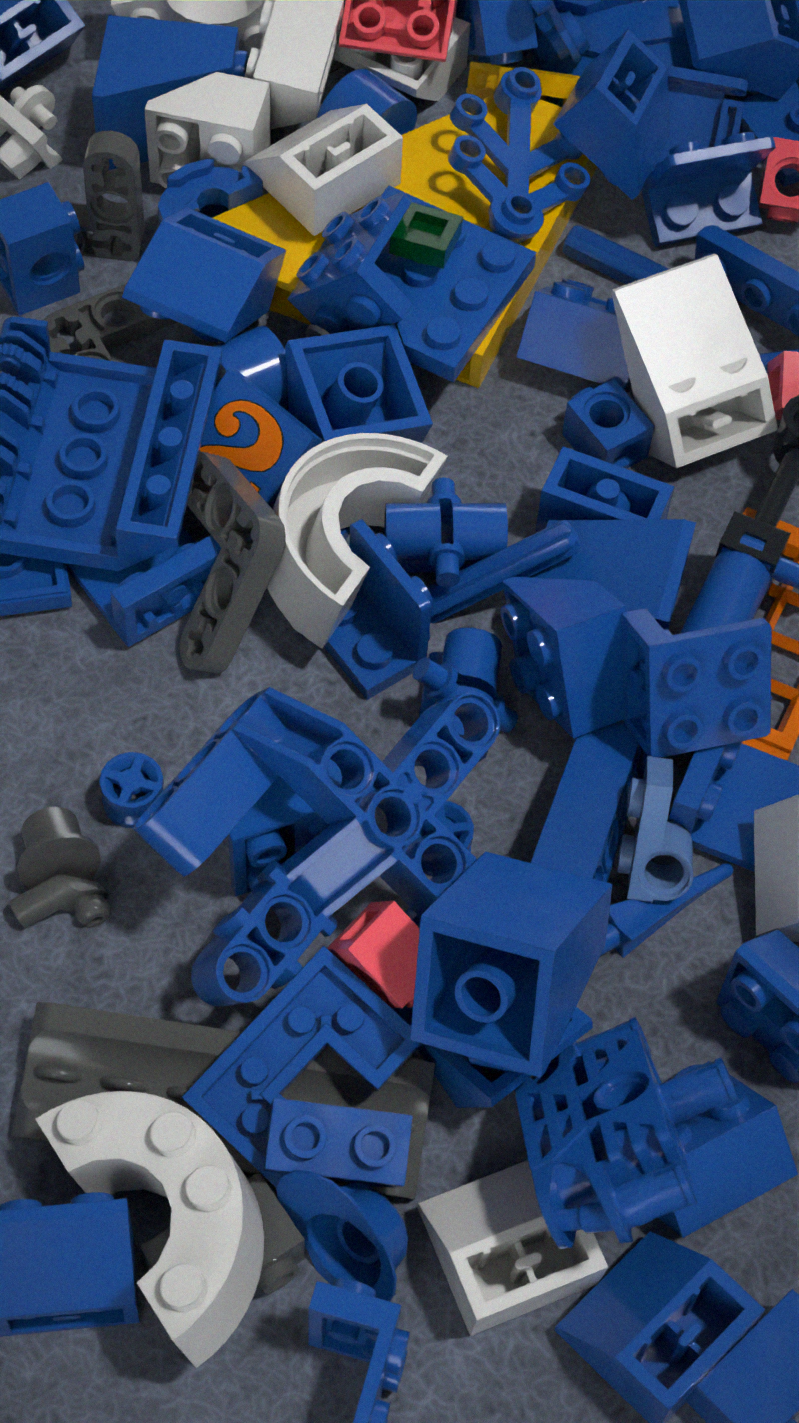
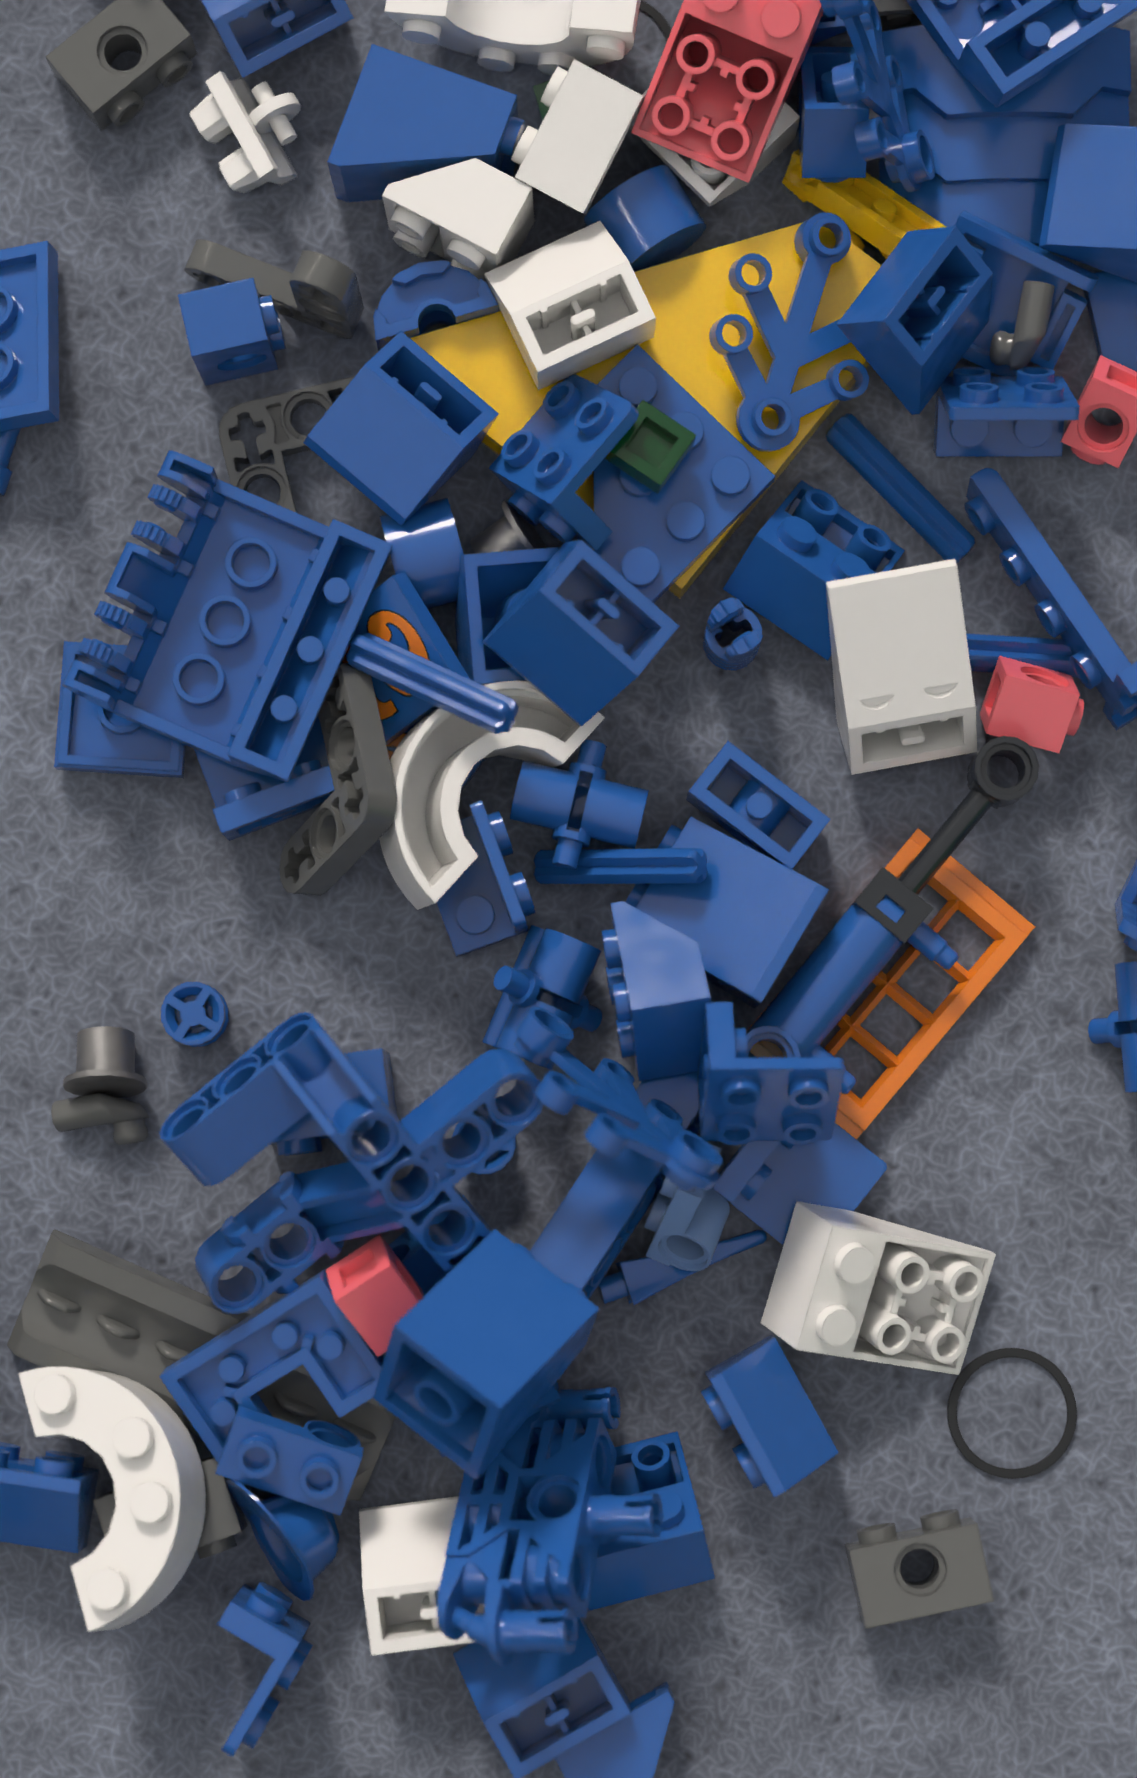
camera: 20 degrees right, 25 degrees up
(289, 436) = (432, 683): none -> blue axle
(410, 370) = (580, 632): none -> blue slope
(536, 386) = (743, 648): none -> blue hinge
(608, 425) = (792, 727): blue brick -> none
(646, 743) = (611, 1094): none -> blue plant
(705, 116) = (1029, 329): none -> dark grey arm

